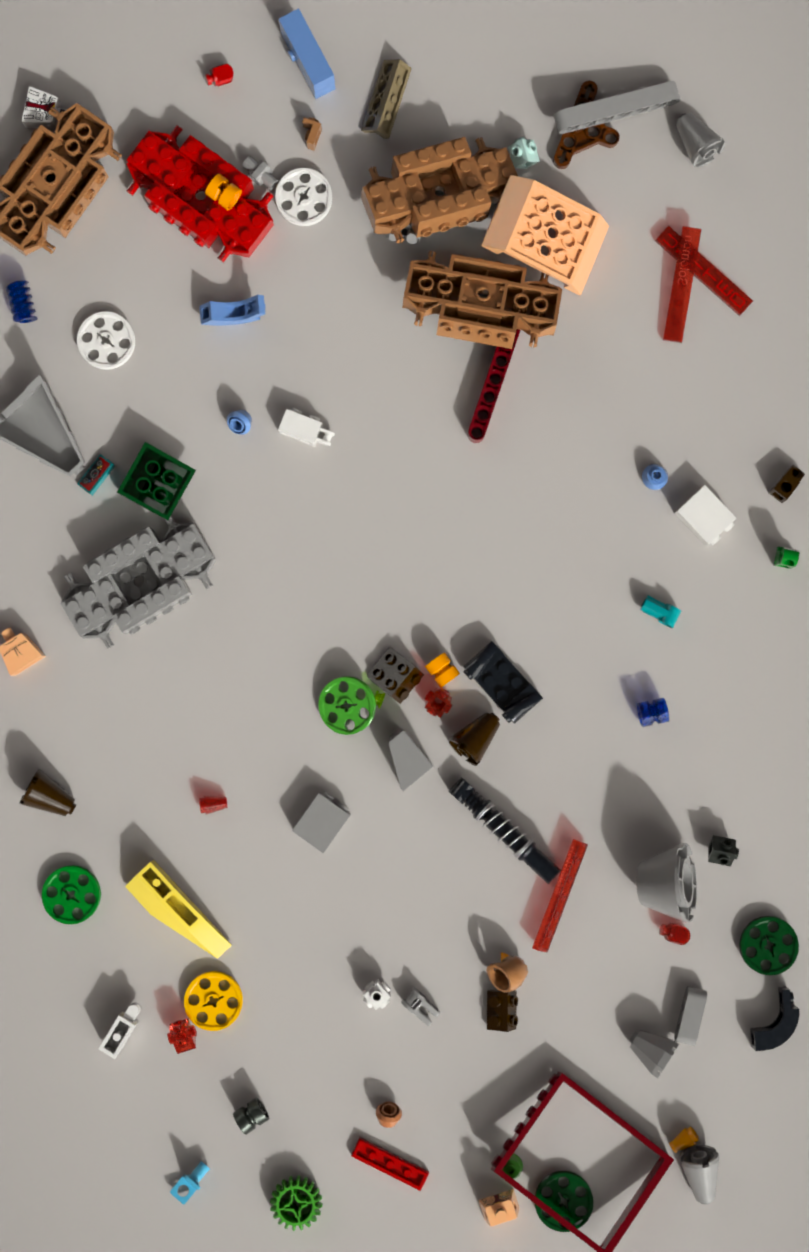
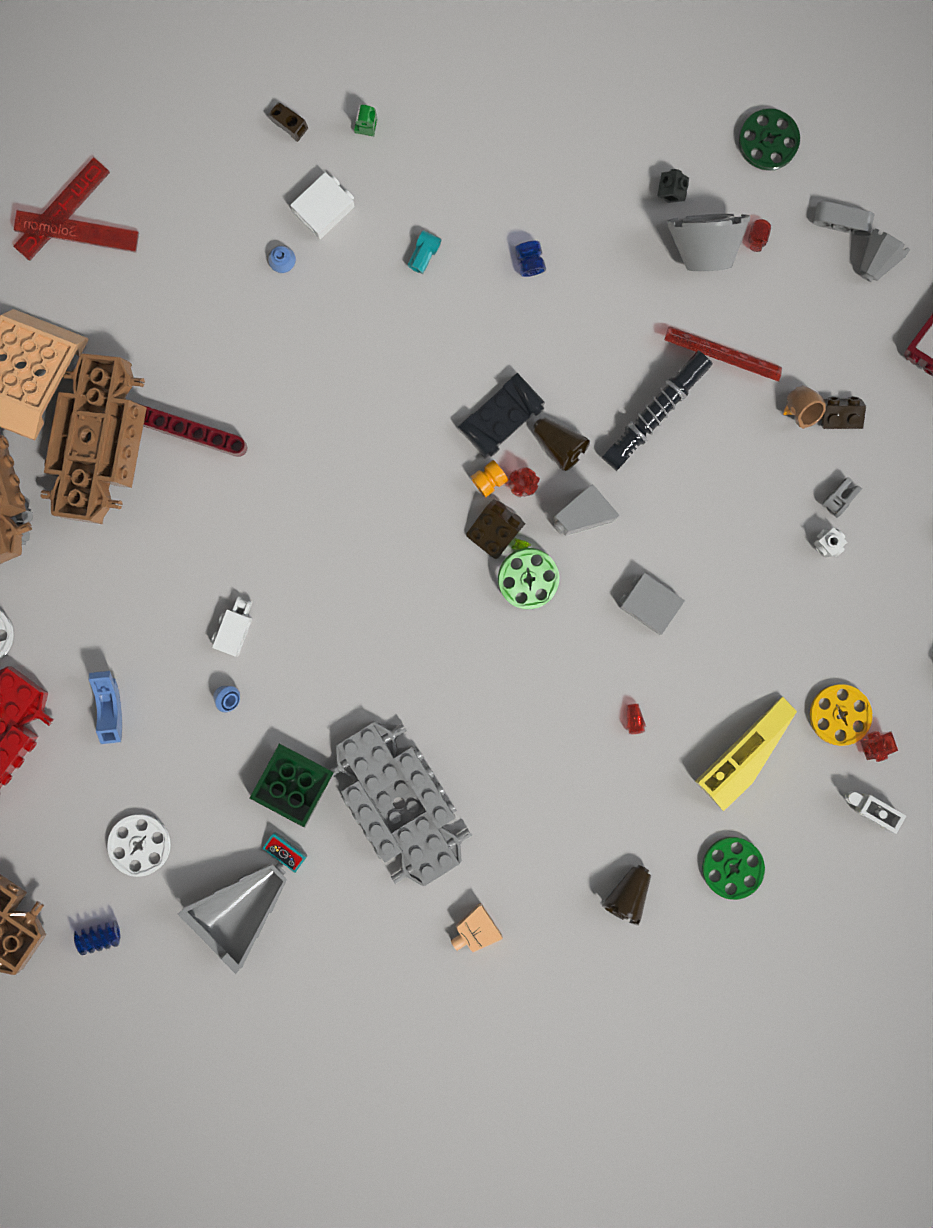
camera: 90 degrees left, 0 degrees up
(782, 1028) = (854, 126): black arch -> none

